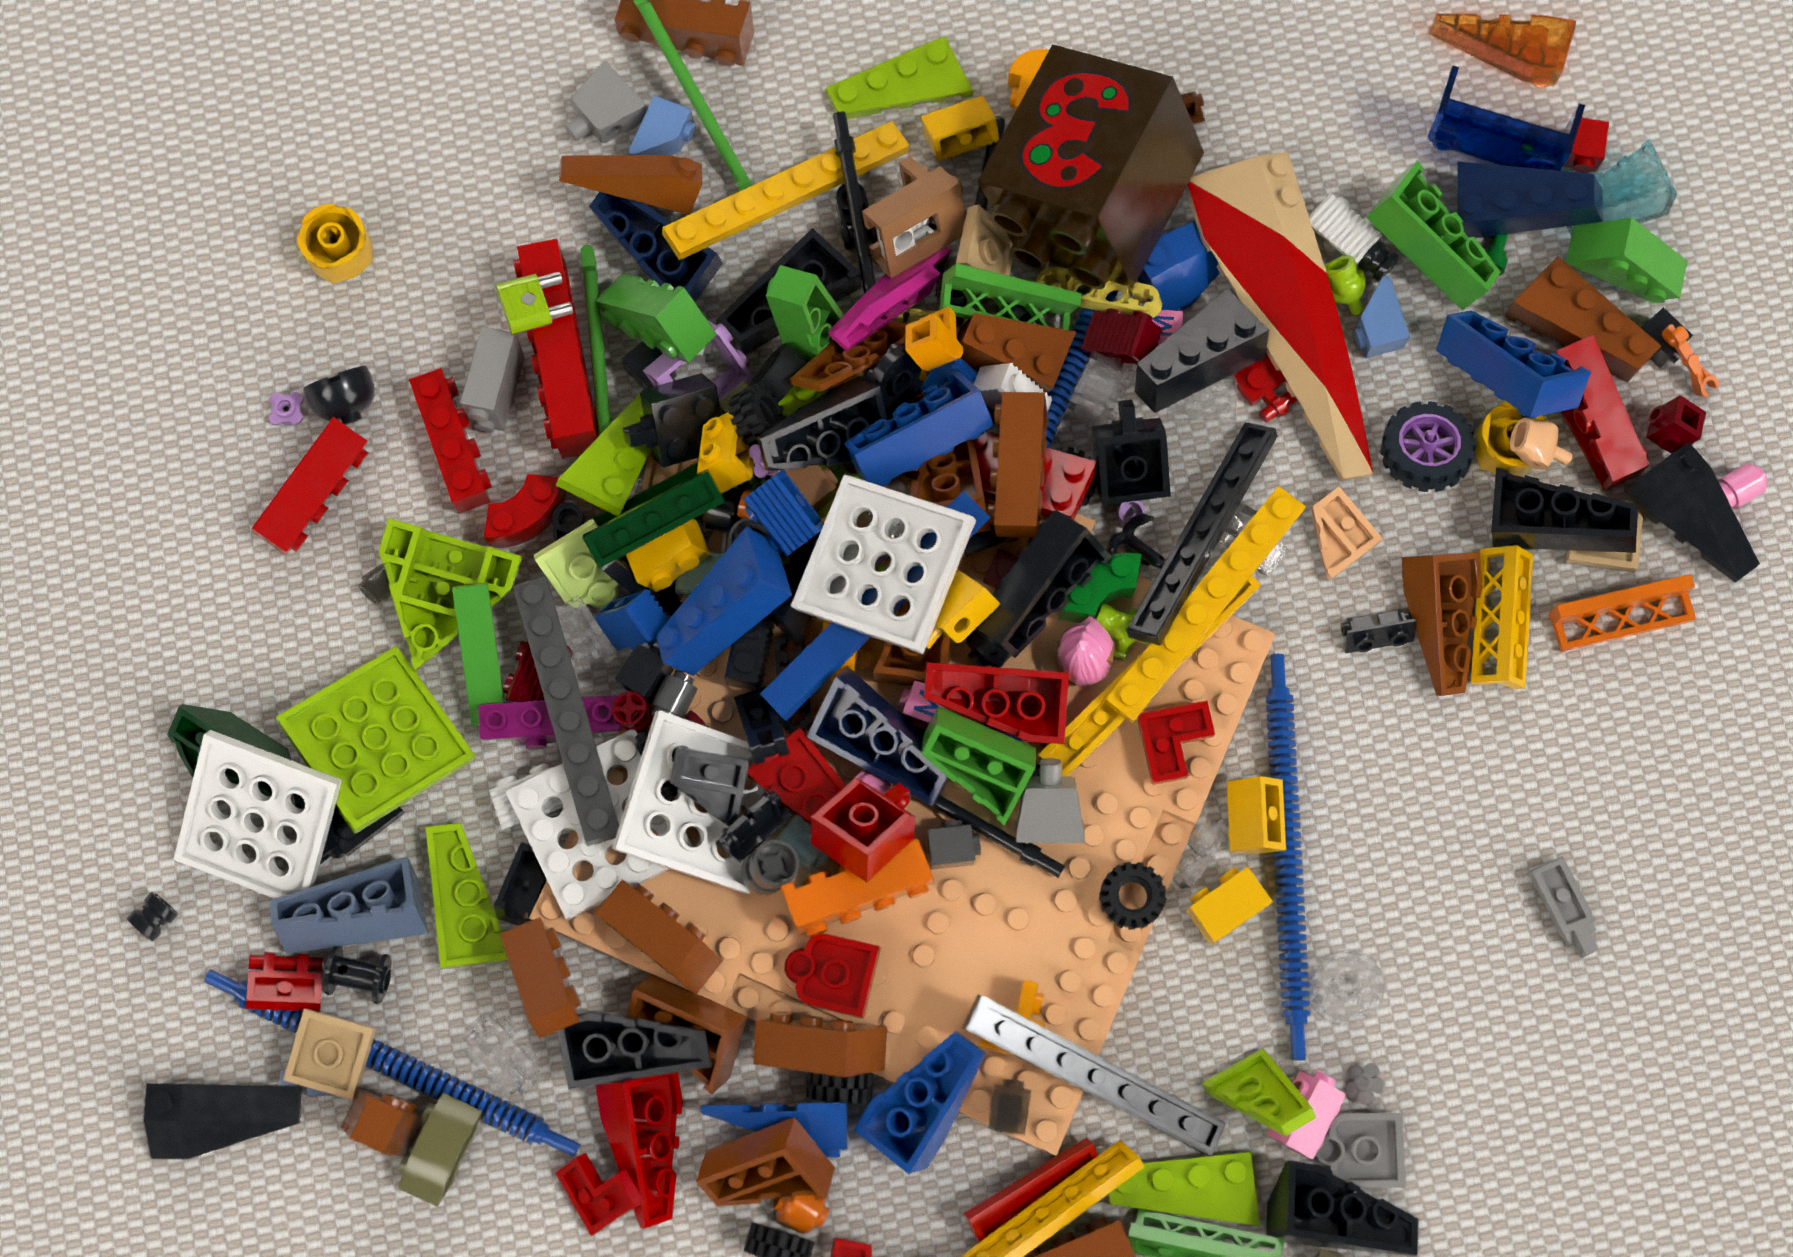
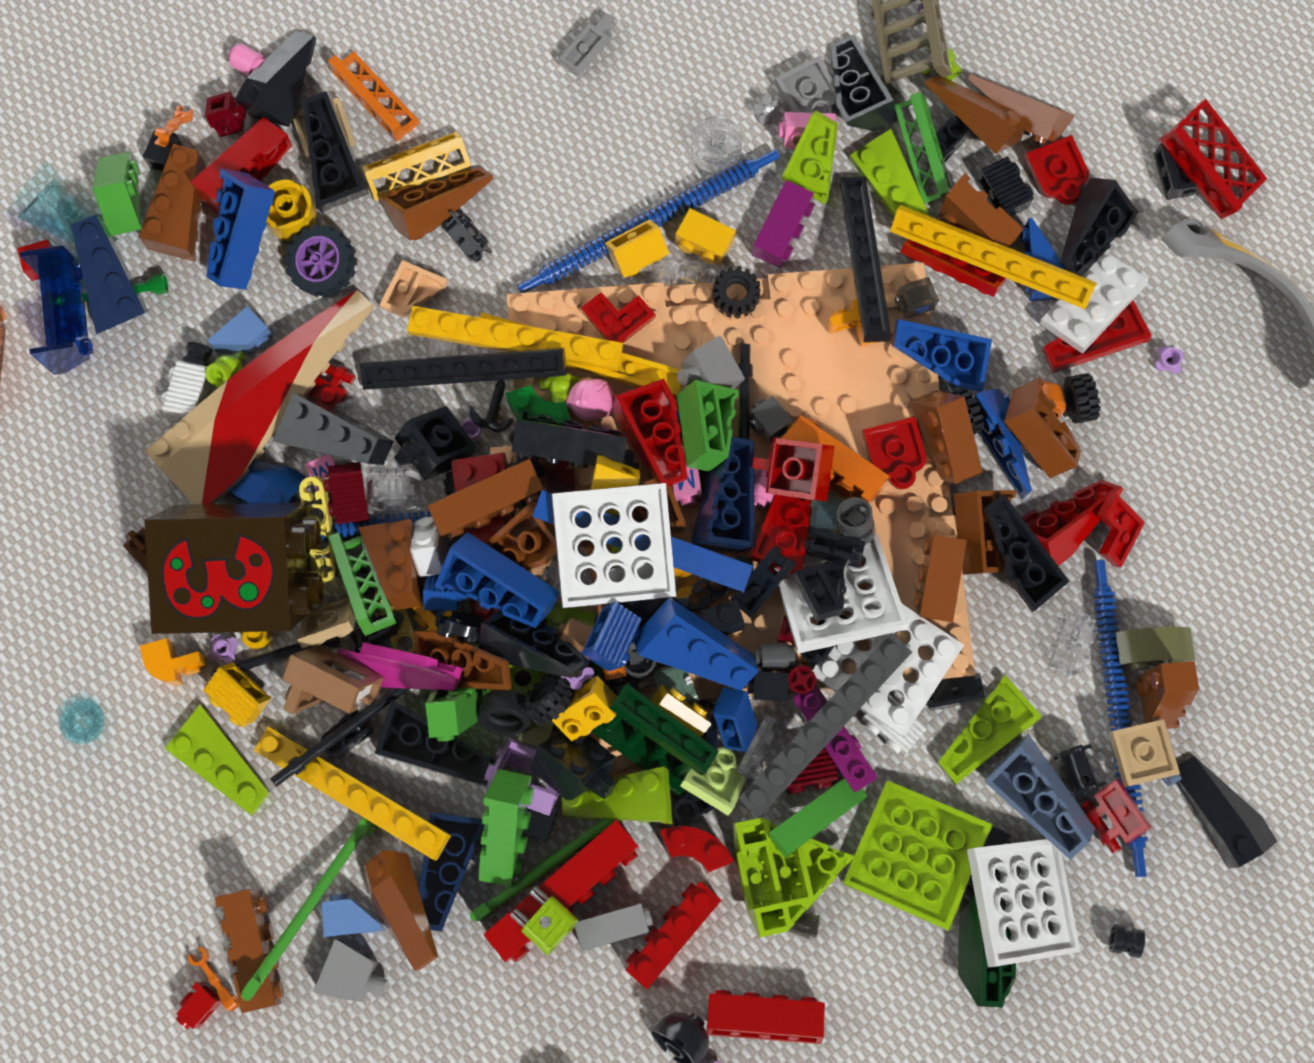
camera: 120 degrees left, 0 degrees up
(541, 977) = (1014, 633): dark orange wedge -> none
(933, 340) = (421, 610): light orange brick -> none
(1198, 1014) = (783, 224): none -> magenta brick
(1433, 238) = (163, 324): bright green wedge -> none
(1537, 443) = (288, 184): light nougat piece -> none

